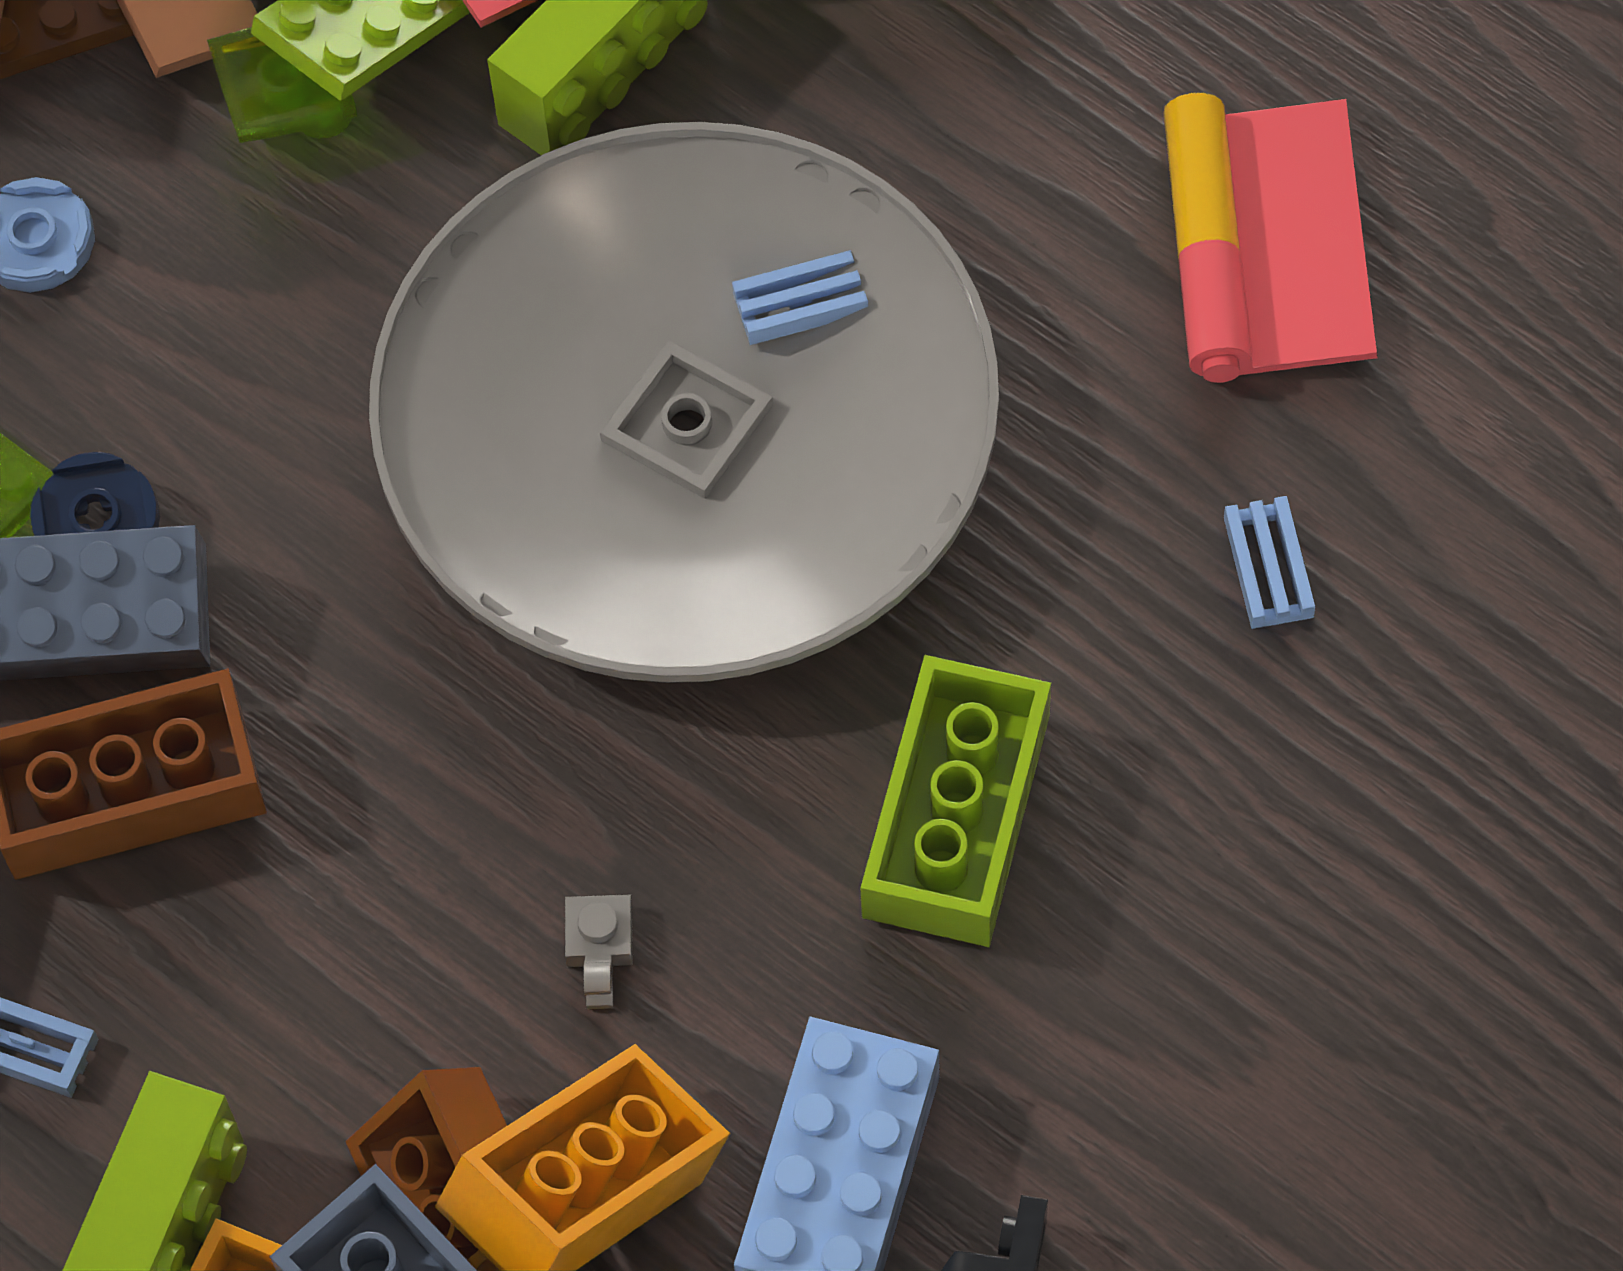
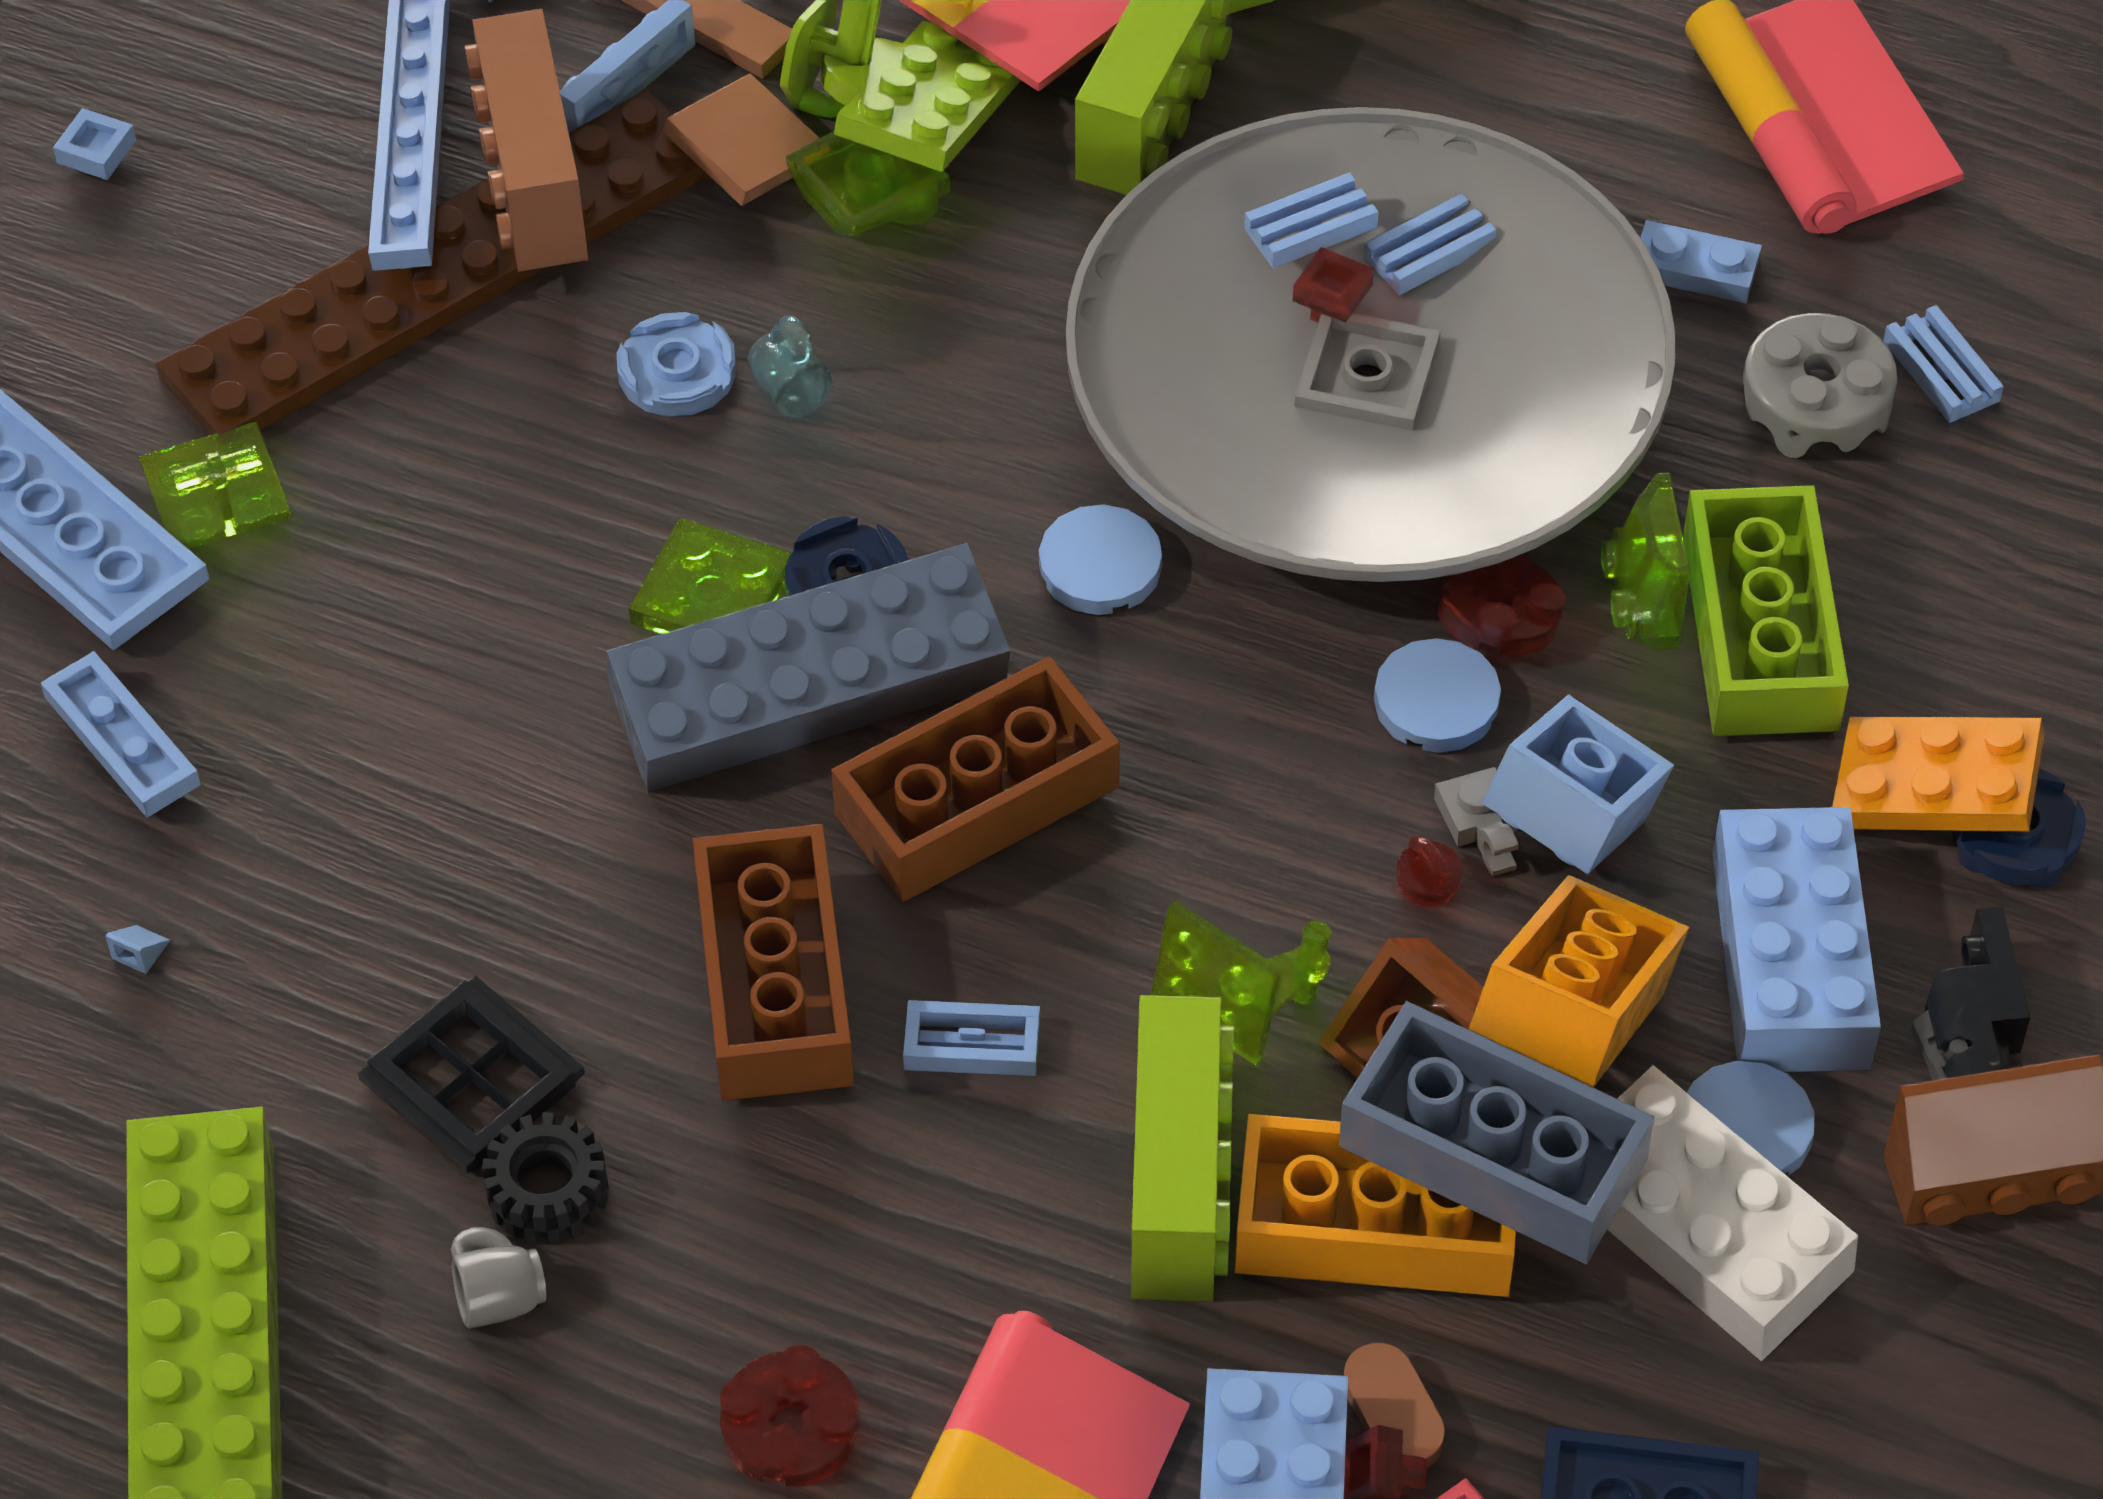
camera: 20 degrees left, 10 degrees down
(127, 277) = (789, 370): none -> clear light blue piece
(282, 1083) = (1207, 962): none -> clear neon green plate
(347, 559) = (1100, 559): none -> light blue tile
(522, 990) = (1428, 872): none -> clear red tile
(611, 797) = (1437, 694): none -> light blue tile
(678, 237) = (1305, 213): none -> light blue tile
(679, 322) = (1332, 285): none -> clear red tile
(686, 945) = (1577, 784): none -> light blue brick
(707, 749) = (1519, 629): none -> clear red plate
(862, 723) = (1649, 568): none -> clear neon green slope
(1056, 1029) = (1940, 773): none -> light orange plate
(1068, 379) = (1702, 261): none -> light blue plate
(1119, 592) = (1810, 410): none -> light grey plate
(1126, 1141) = (2034, 855): none -> dark blue plate

